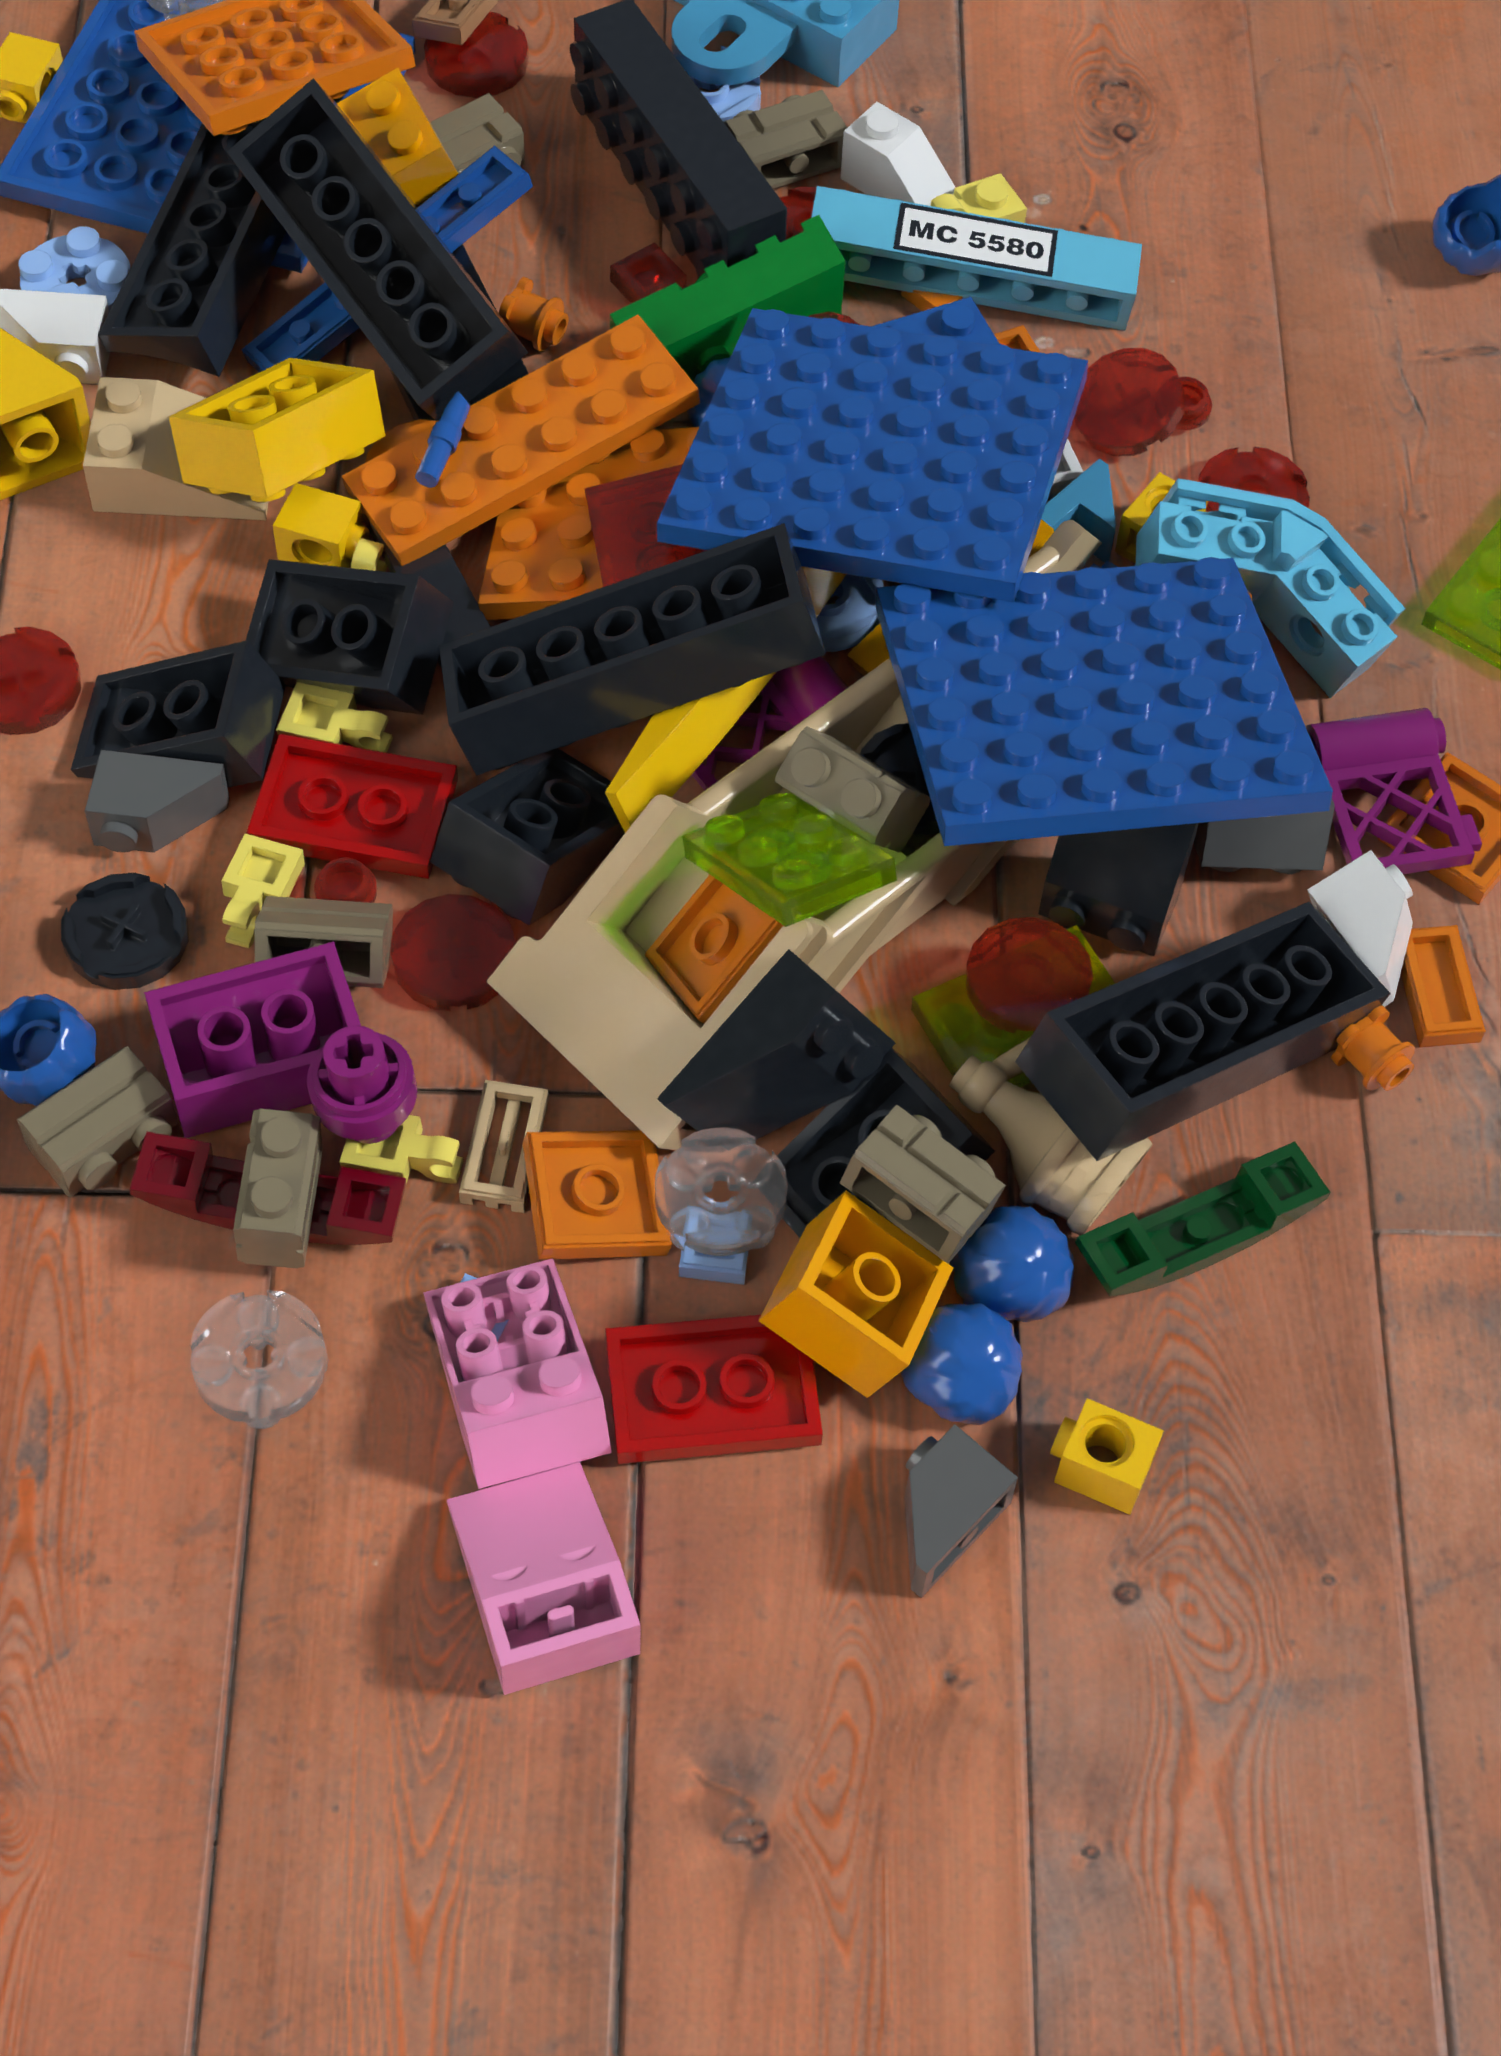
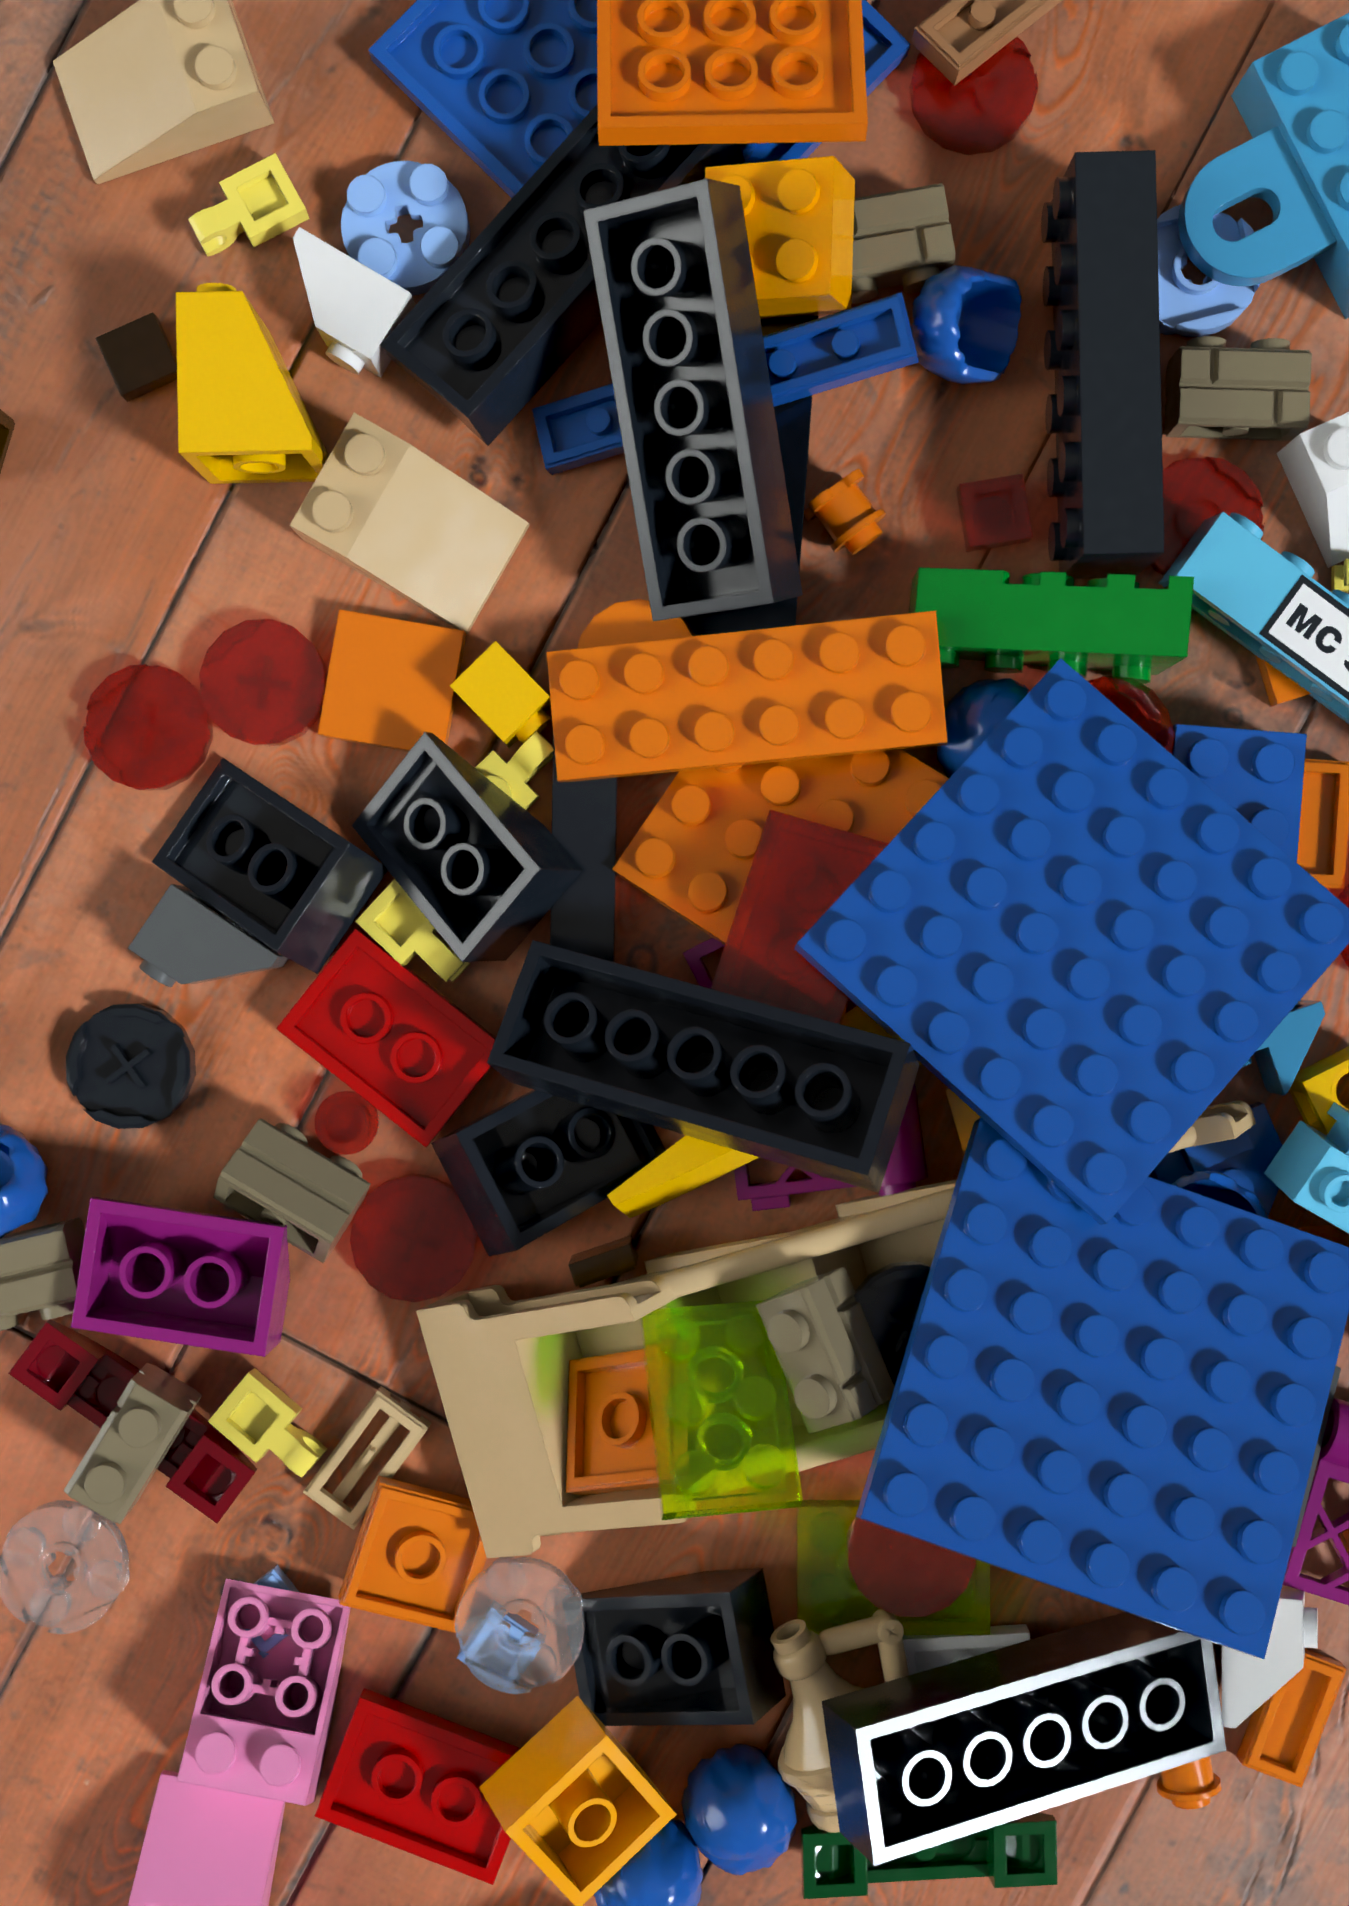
camera: 25 degrees right, 30 degrees up
(108, 609) = (263, 682): none -> clear red tile
(213, 566) = (390, 681): none -> orange tile
(257, 871) = (270, 1078): light yellow plate -> none
(277, 428) = (501, 574): yellow brick -> none
(362, 1084) = (236, 1404): magenta piece -> none
(443, 441) = (658, 677): blue piece -> none
(558, 166) = (966, 324): none -> blue hair
(778, 1055) = (644, 1573): black slope -> none
(923, 1182) = (678, 1760): dark tan brick -> none

